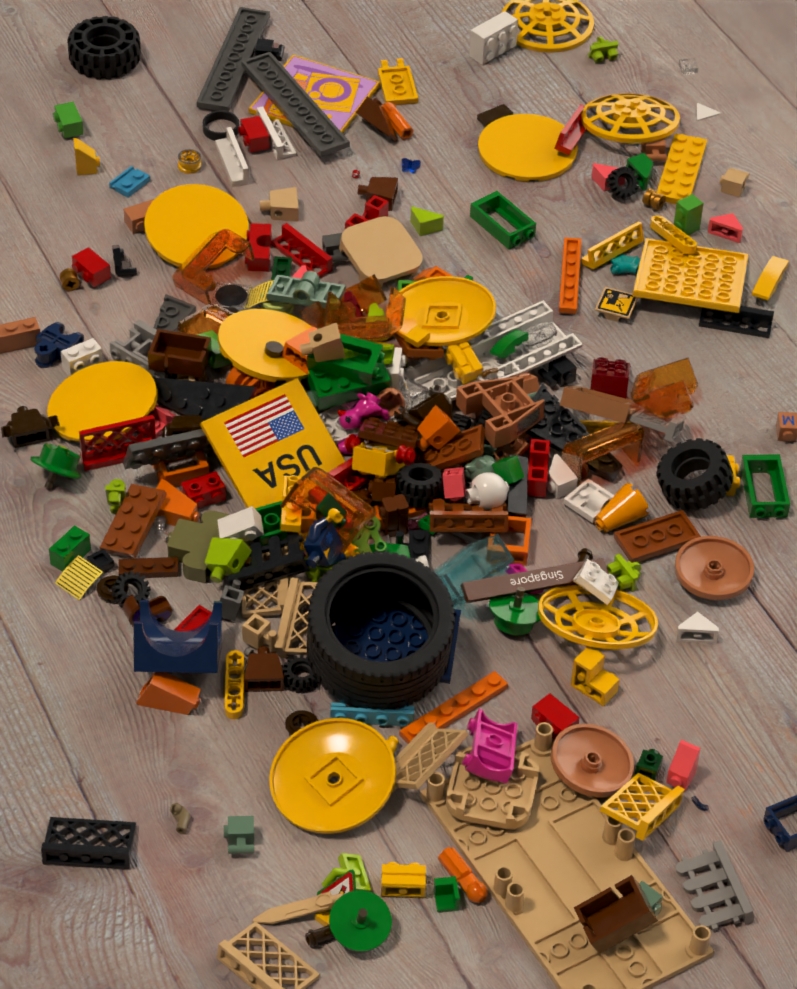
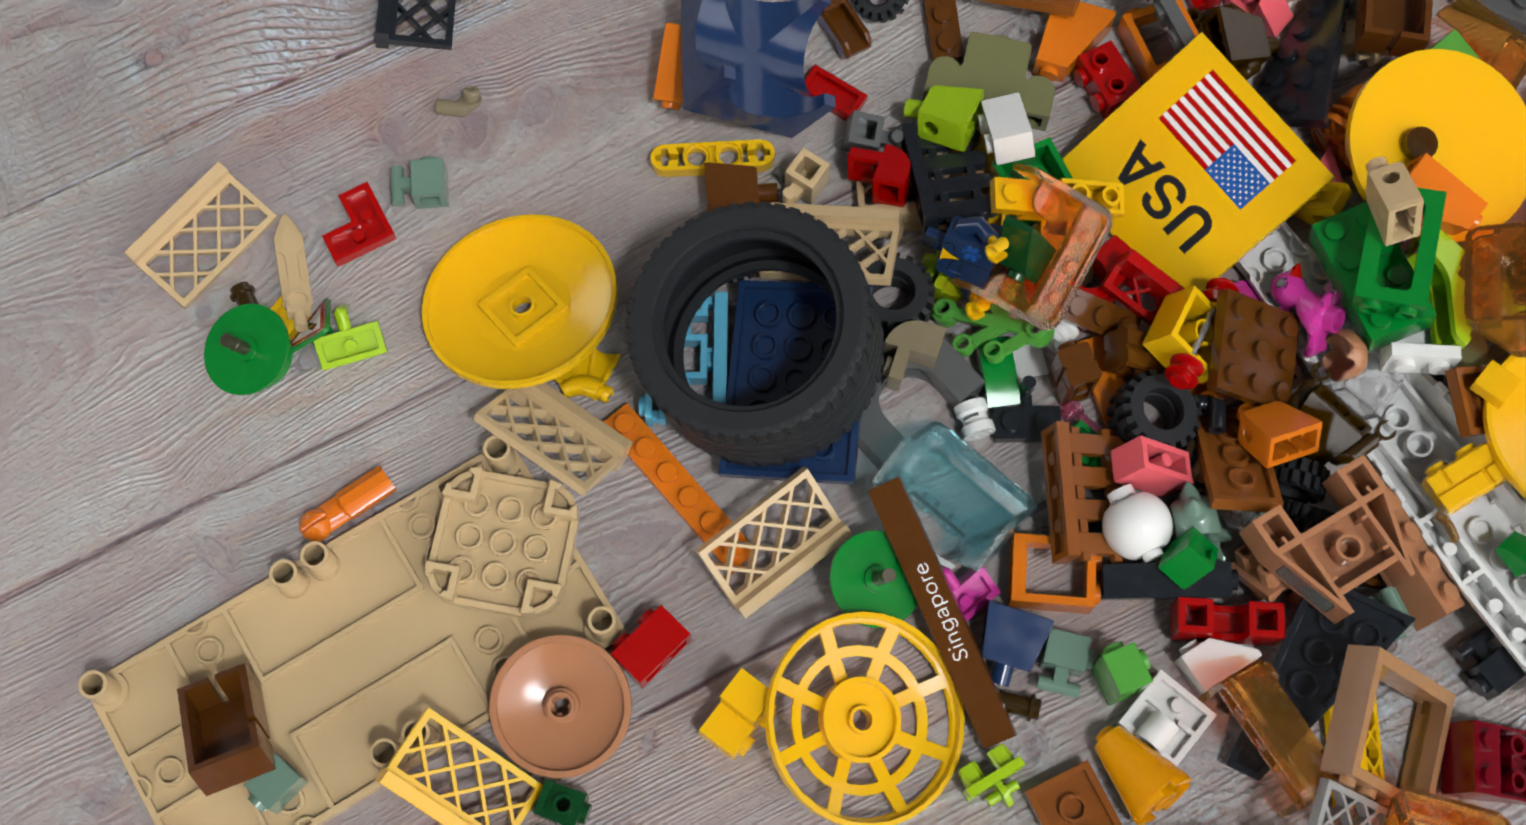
camera: 90 degrees right, 25 degrees up
(260, 587) = (885, 170): none -> red brick
(267, 866) = (367, 228): none -> red plate
(293, 720) = (623, 252): dark brown gear -> none
(403, 880) = (338, 415): yellow brick -> none
(423, 456) = (1215, 410): none -> black arm
(446, 894) = (313, 481): green panel -> none
(491, 748) = (573, 537): dark pink piece -> none
(497, 654) = (785, 567): none -> tan fence
(547, 553) = (1012, 639): none -> dark blue torso
(556, 538) = (1065, 656): none -> sand green brick
(568, 510) = (1122, 672): none -> bright green brick
(596, 581) = (948, 719): white plate -> none

